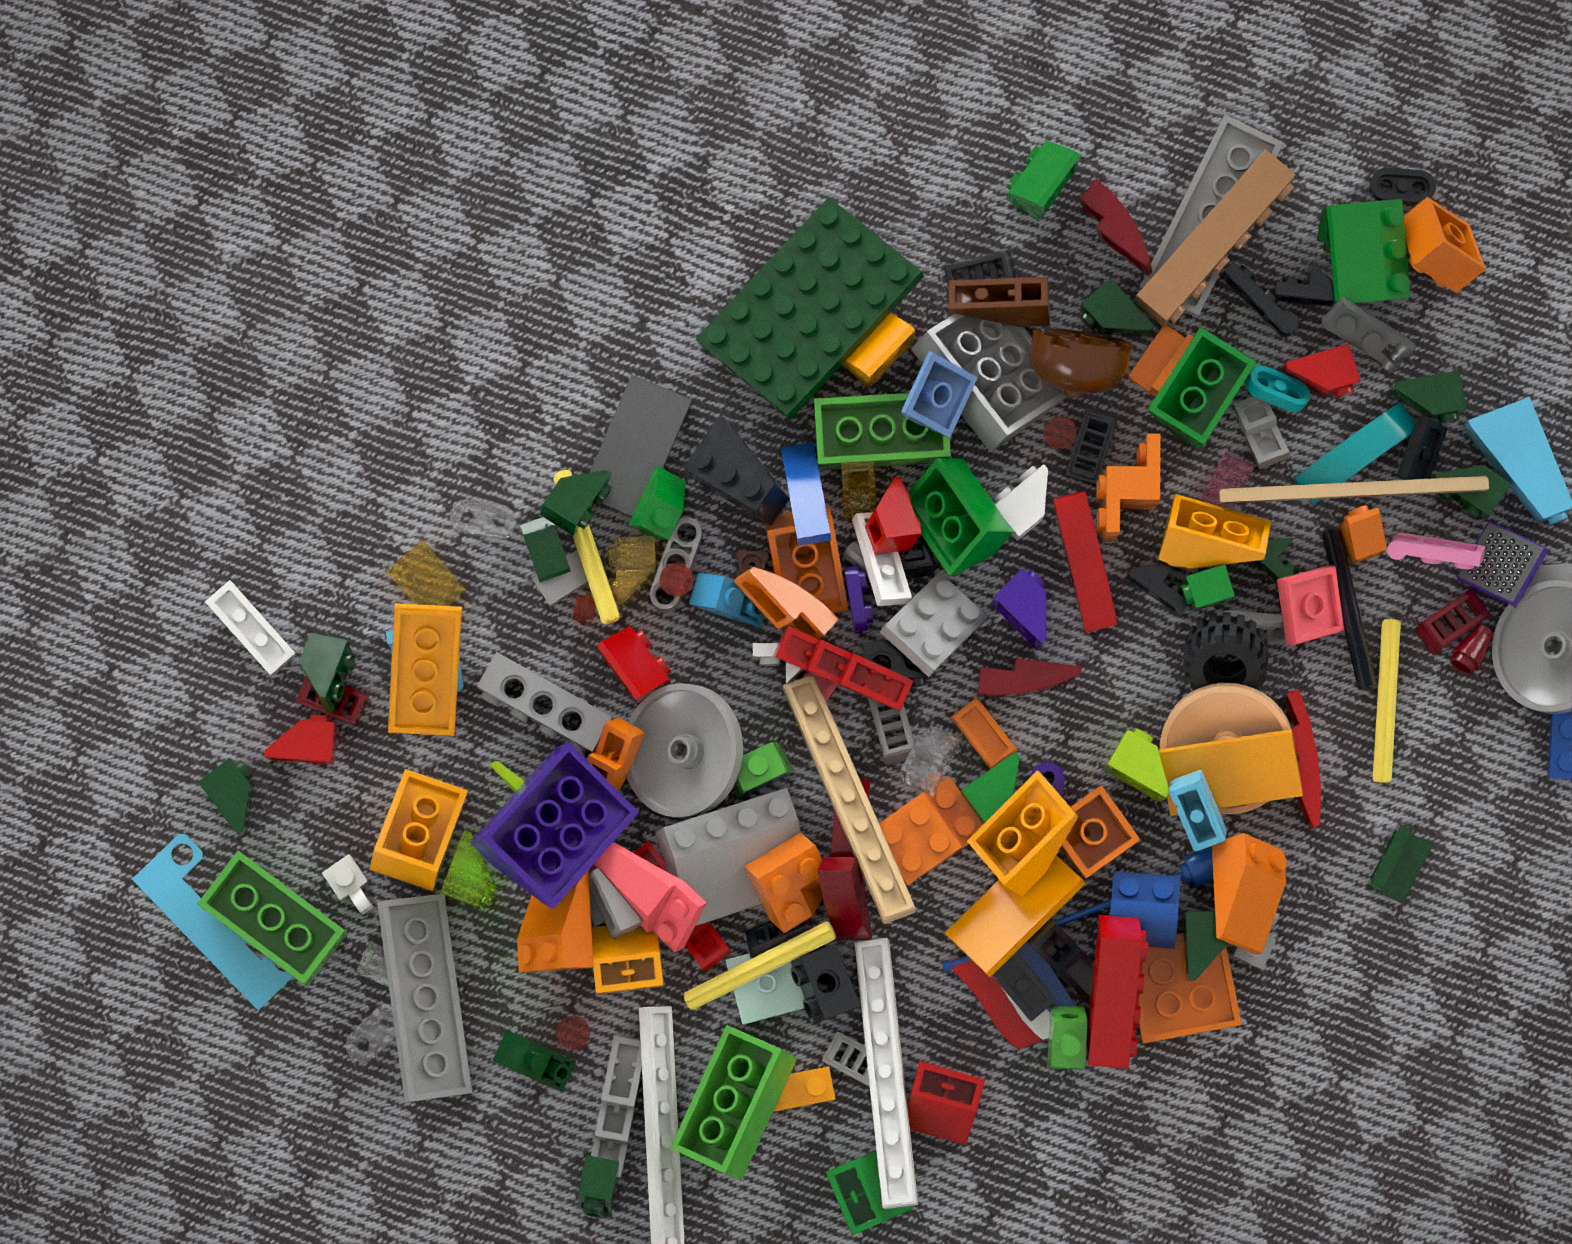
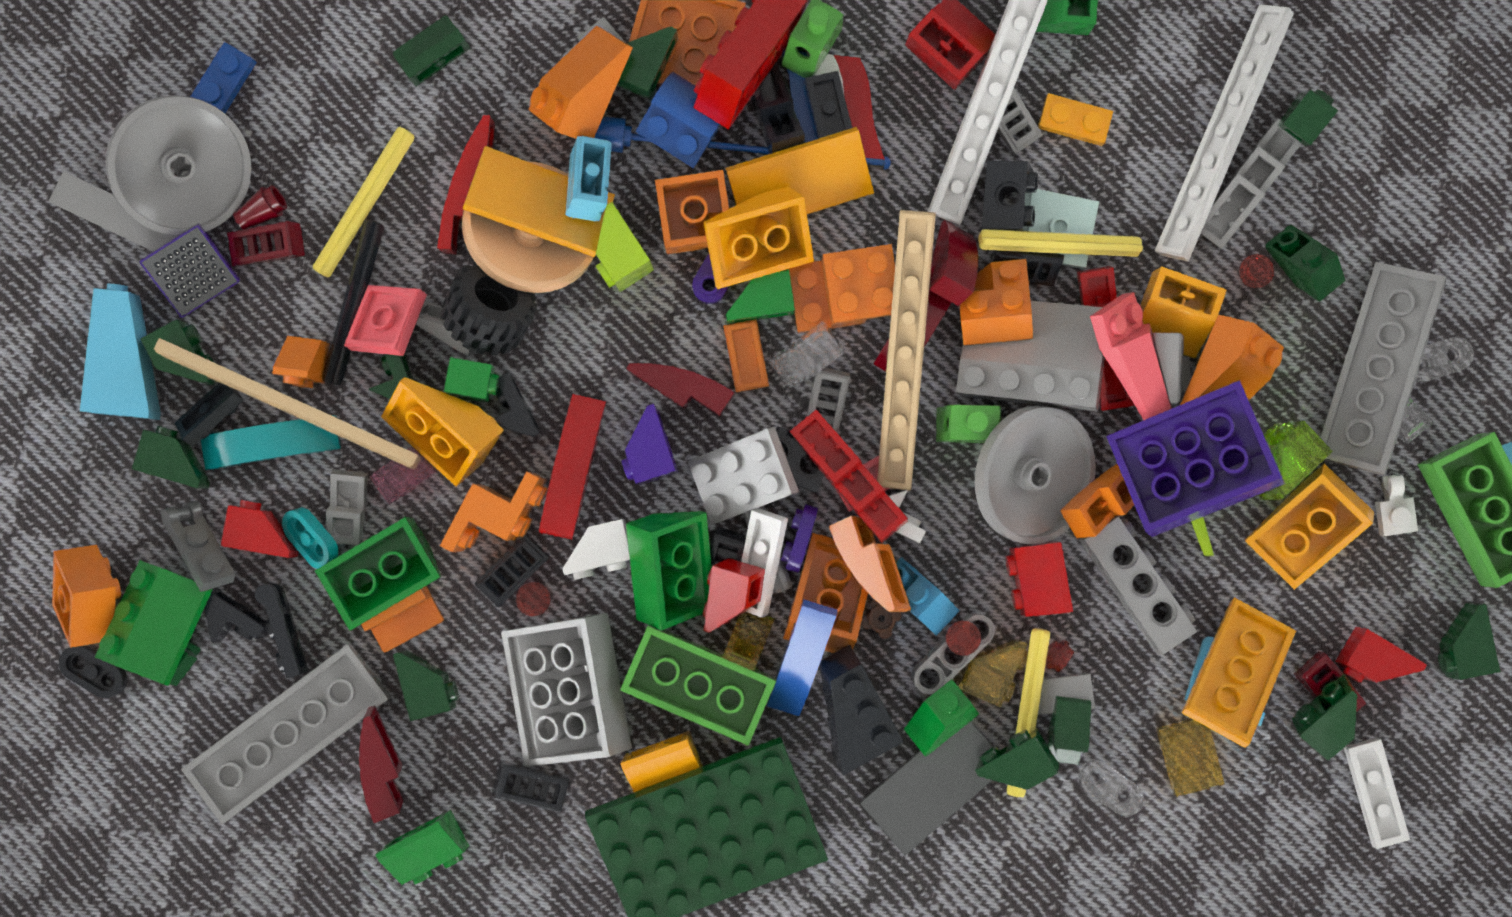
camera: 155 degrees left, 5 degrees up
(734, 1102) = (1147, 129): bright green brick -> none
(938, 395) = (629, 688): medium blue slope -> none
(1002, 300) = (523, 751): reddish brown slope -> none
(1078, 360) = (480, 657): reddish brown cylinder -> none
(1215, 238) = (291, 709): medium nougat brick -> none
(1436, 550) = (243, 312): bright pink plate -> none

